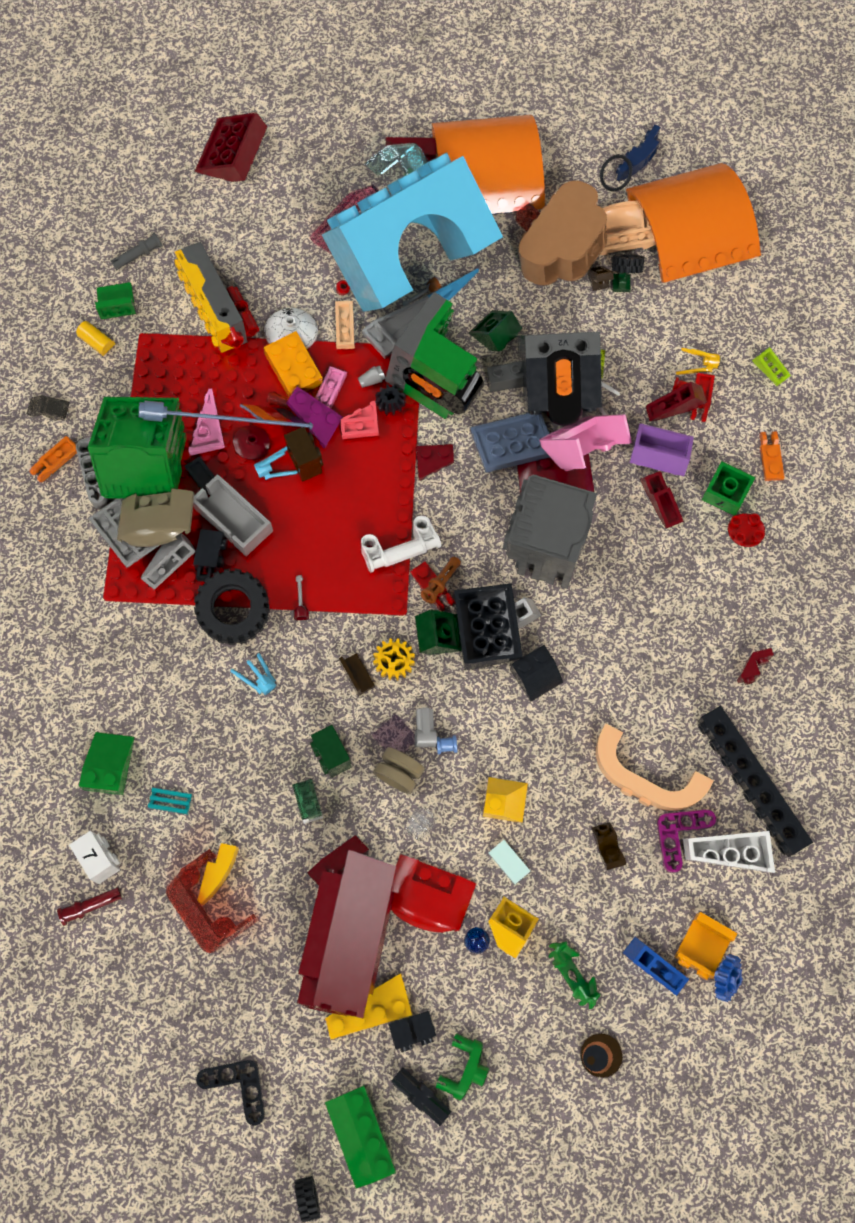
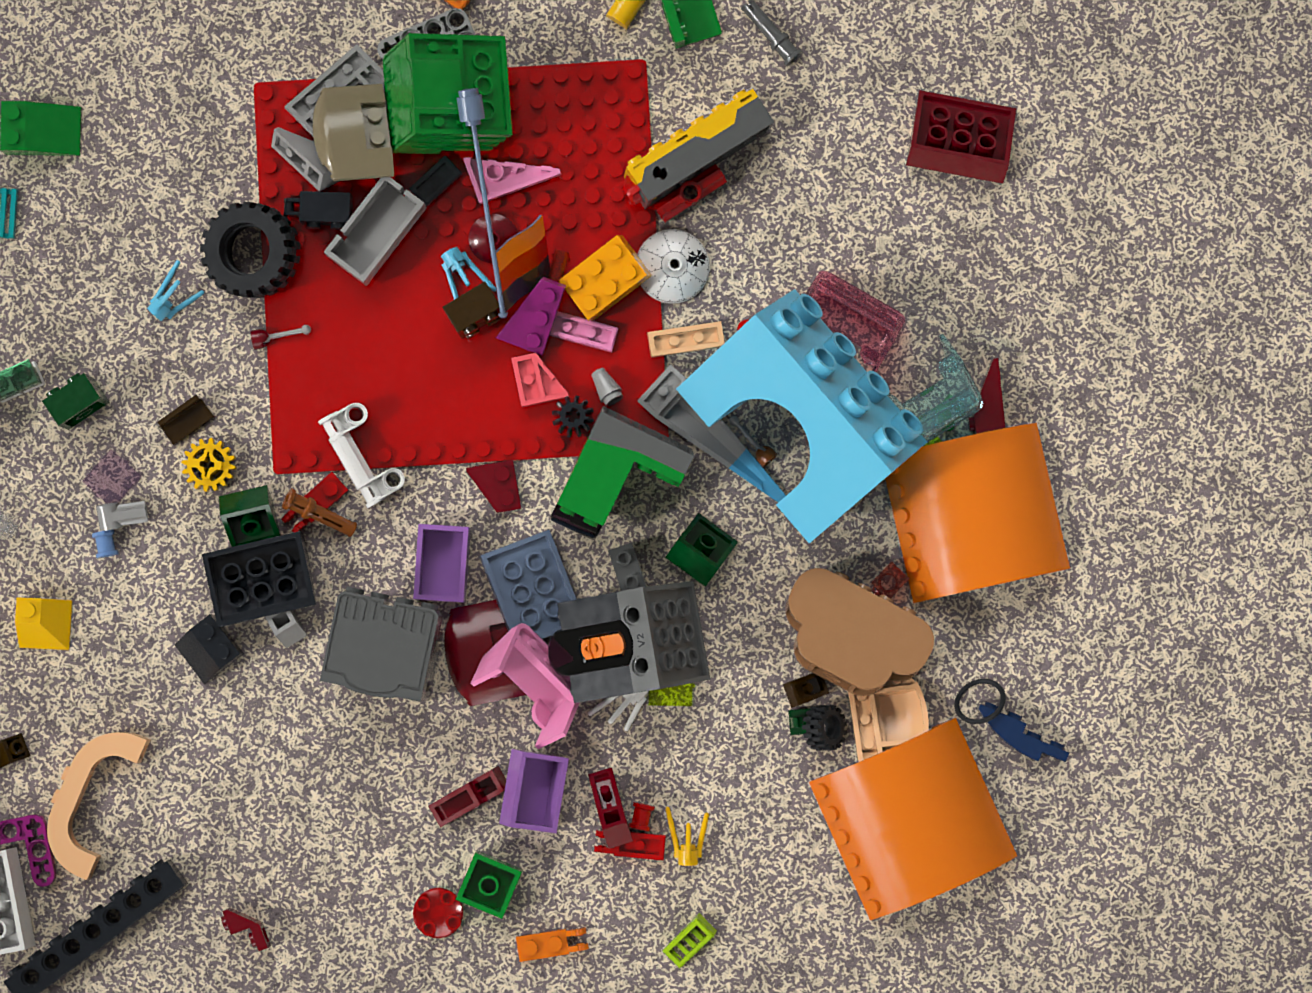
camera: 90 degrees right, 15 degrees up
(399, 770) = (59, 487): dark tan wheel -> none
(488, 497) = (442, 563): none -> medium lavender piece

